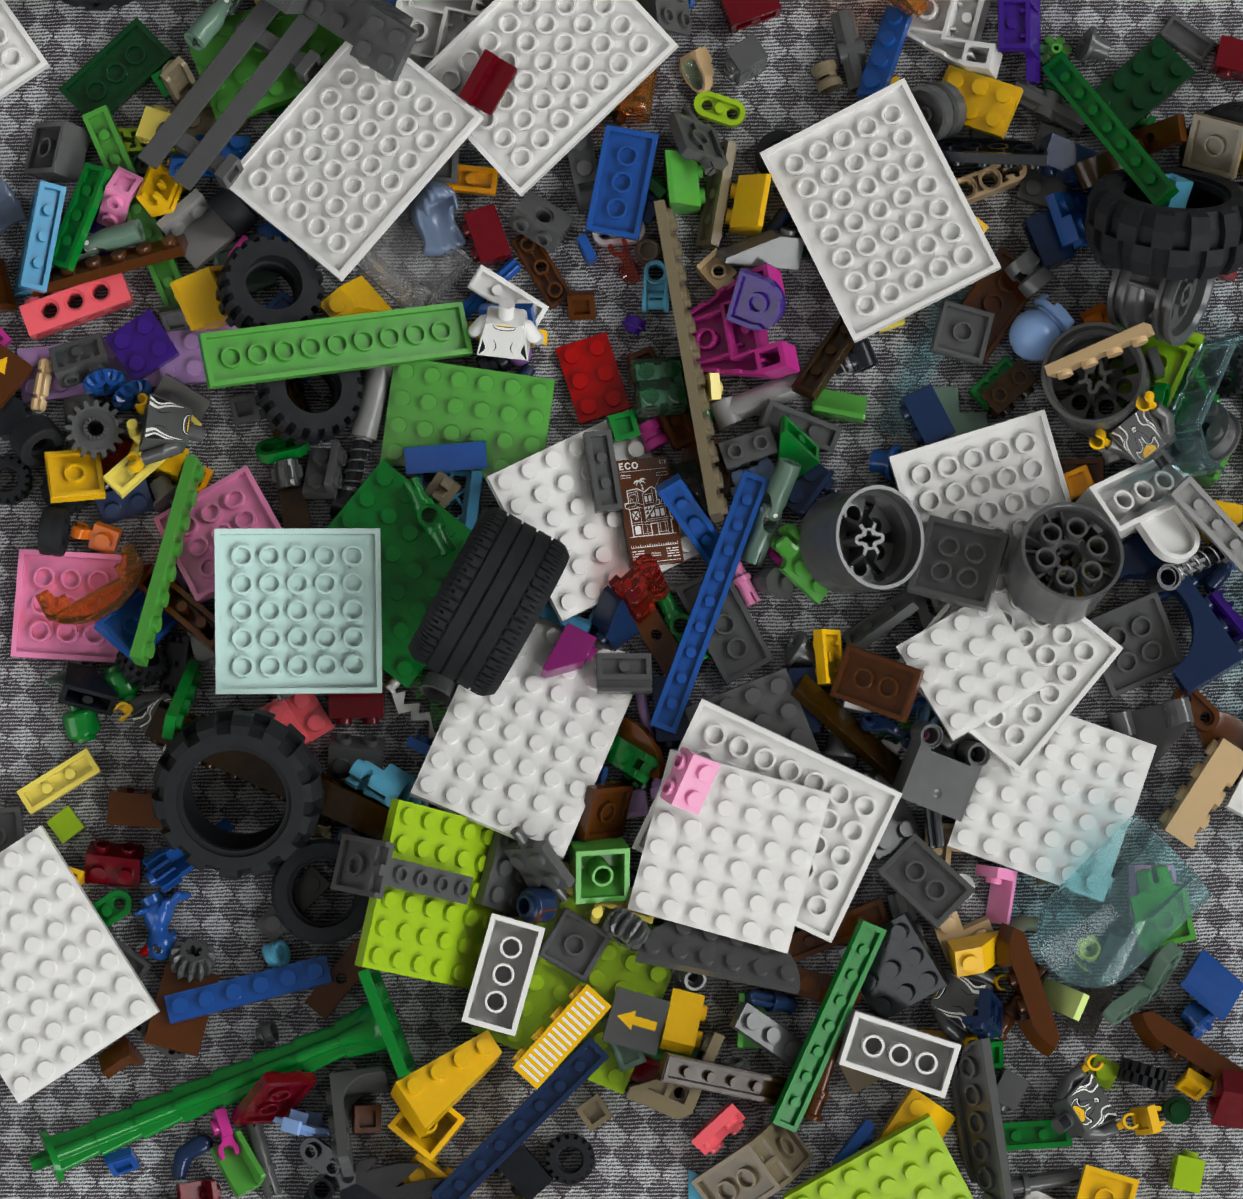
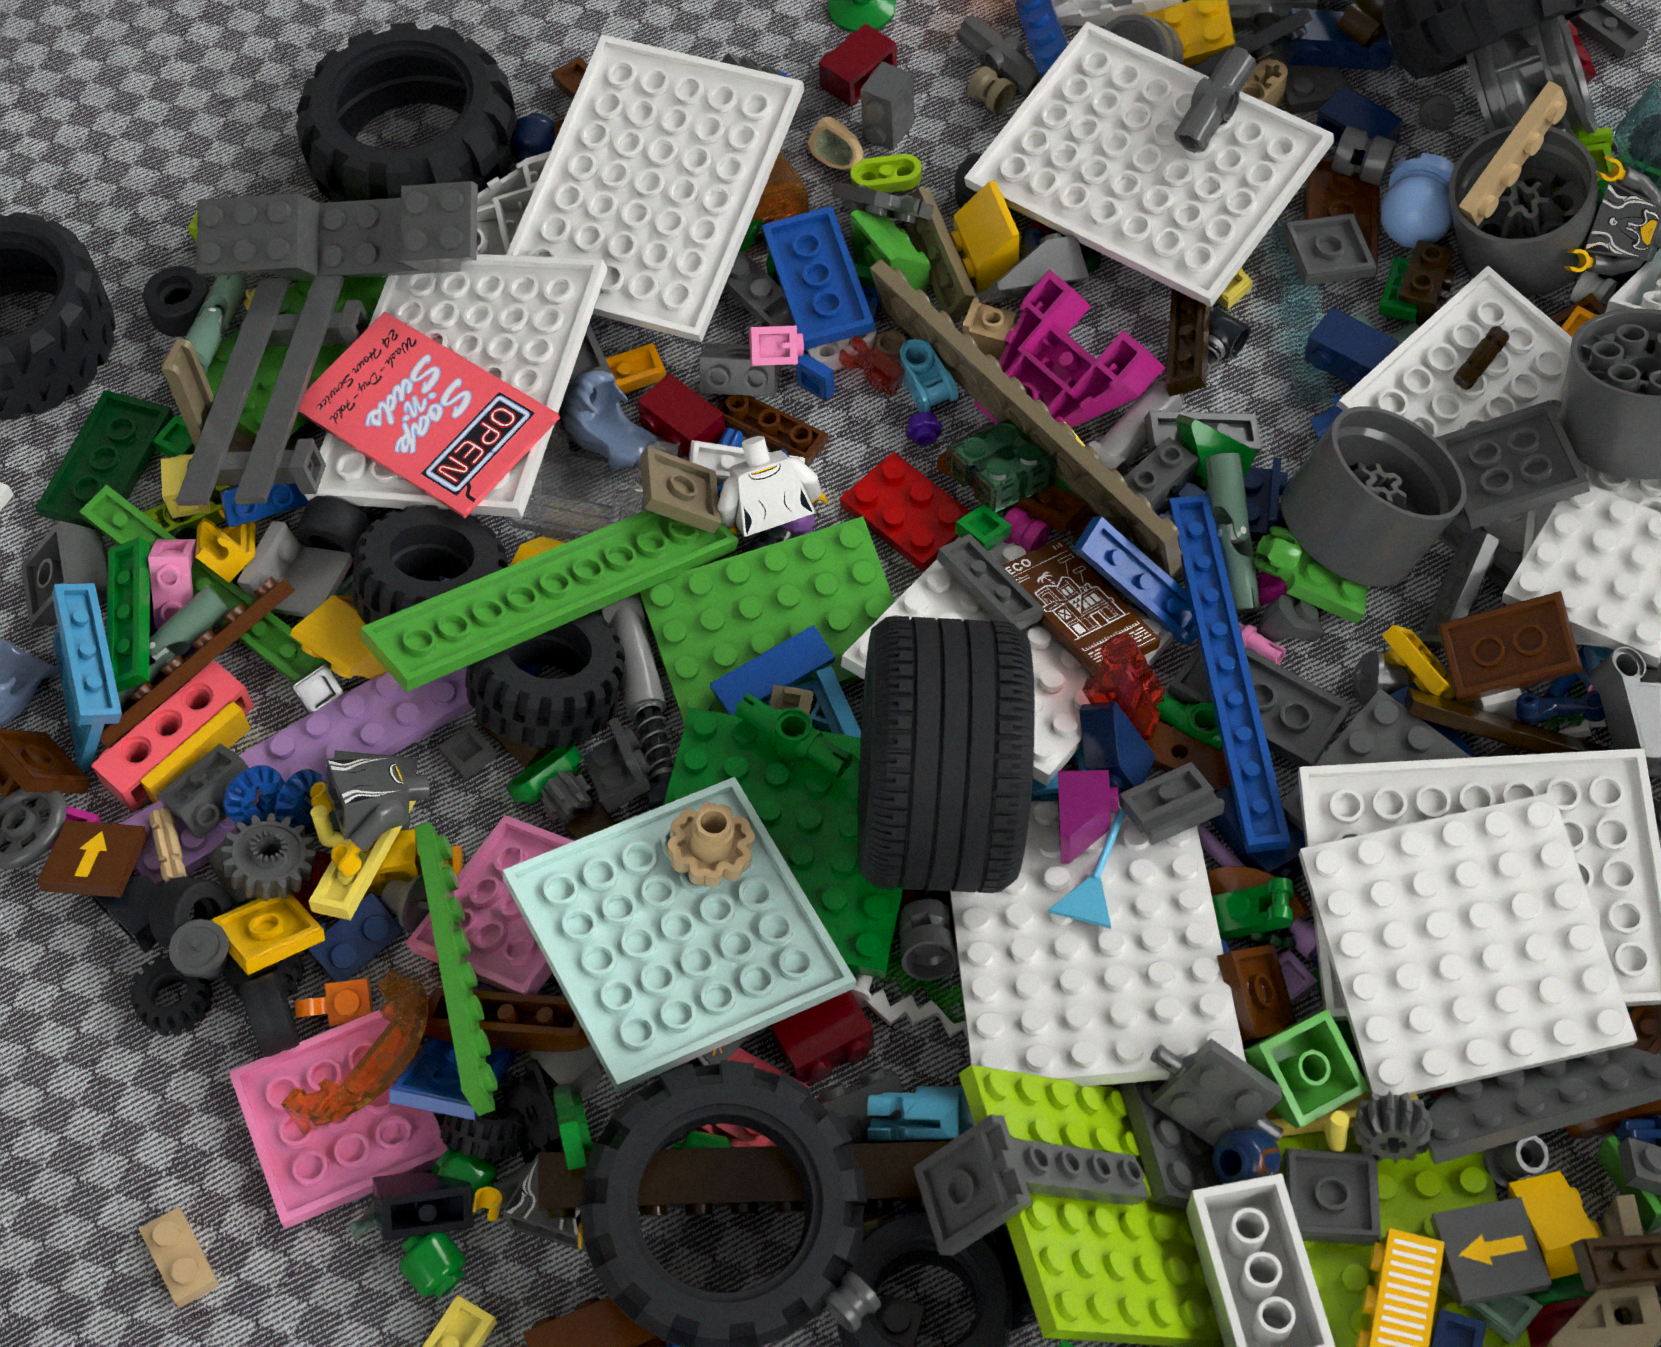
camera: 20 degrees left, 25 degrees down
(30, 471) = (199, 949): none -> dark grey piece
(84, 325) = (223, 728): none -> yellow tile
(142, 346) = (288, 734): dark purple plate -> none
(279, 880) = (851, 1302): none -> dark grey wheel
(319, 168) = (426, 413): none -> coral piece
(340, 571) = (710, 844): none -> tan plant
(420, 744) = (946, 1047): blue plate -> none
(451, 304) = (680, 489): none -> dark tan tile
(488, 82) = (591, 228): dark red panel -> none
(539, 709) = (1088, 899): none -> medium azure piece
(565, 230) = (775, 345): none -> bright pink bracket
(581, 305) = (844, 436): reddish brown plate -> none
(689, 780) = (1355, 865): bright pink bracket -> none
(756, 301) = (1063, 313): dark purple tile -> none
(840, 406) = (1243, 396): bright green panel -> none
(941, 198) = (1215, 99): none -> dark grey piece
(995, 474) = (1481, 357): none -> dark brown axle
(1069, 217) = (1386, 88): blue plate -> none

